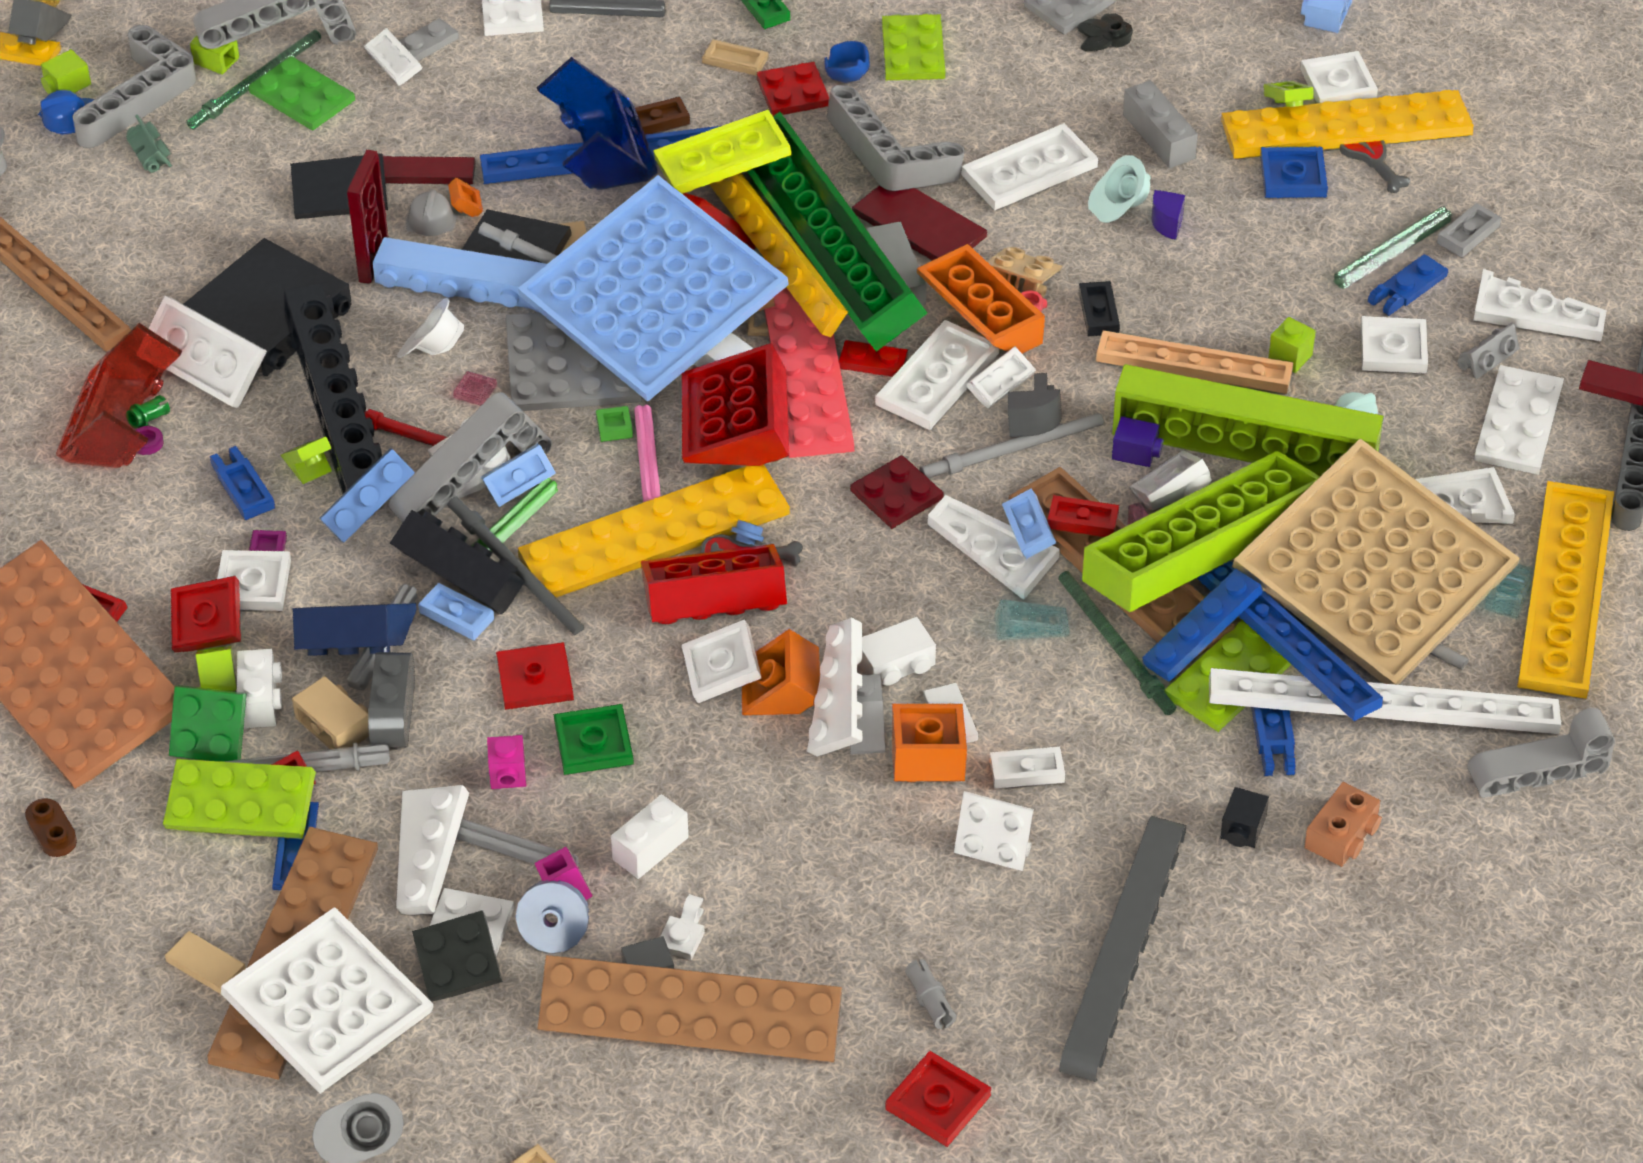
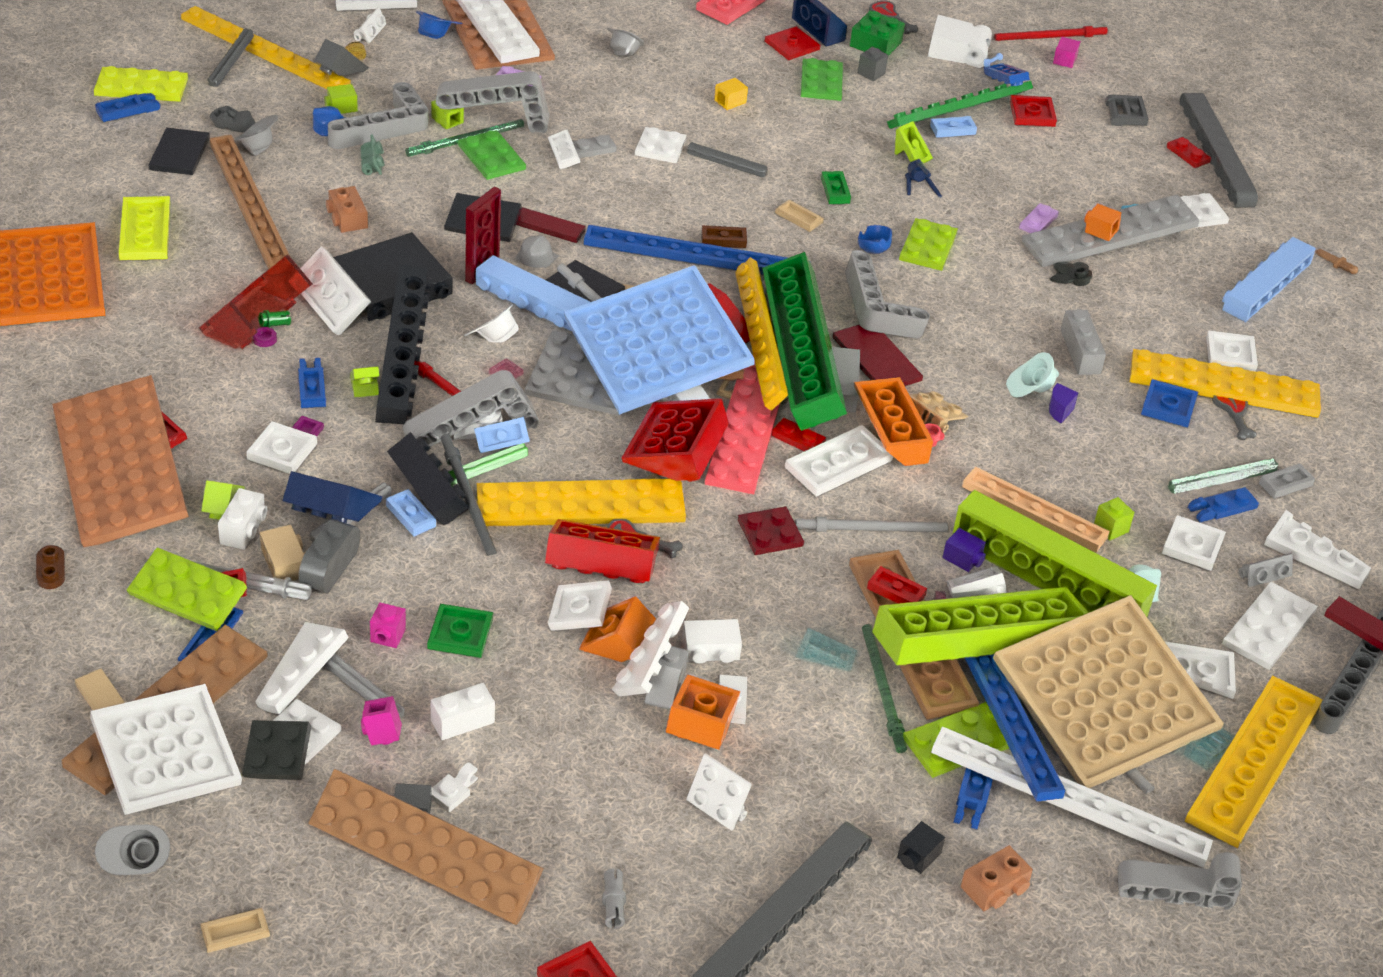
camera: 15 degrees right, 5 degrees down
(159, 230) = (347, 209): none -> nougat brick
(205, 614) = (235, 459): red plate -> none
(207, 724) = (192, 531): green plate -> none
(366, 495) = (388, 415): medium blue plate -> none
(465, 198) = (564, 248): orange plate -> none
(534, 675) = (443, 574): red plate -> none
(555, 898) = (372, 744): plate -> none
(613, 137) = (682, 228): clear blue windscreen -> none
(614, 423) = (589, 422): bright green plate -> none
(647, 452) = (603, 448): bright pink axle -> none
(722, 152) = (751, 266): neon yellow plate -> none
(747, 532) = (646, 524): medium blue plate -> none
(793, 88) = (829, 246): red plate -> none
(991, 545) = (825, 591): white wing -> none
(1001, 377) = (884, 476): white plate -> none
(1027, 767) = (770, 755): white plate -> none
(1029, 166) = (974, 343): white plate -> none
(1029, 523) = (853, 580): light blue plate -> none
(1035, 410) = (897, 505): dark grey brick -> none
(1098, 308) = (980, 451): black plate -> none
(1202, 625) = (951, 693): blue plate -> none
(1288, 92) = (1188, 349): lime plate -> none

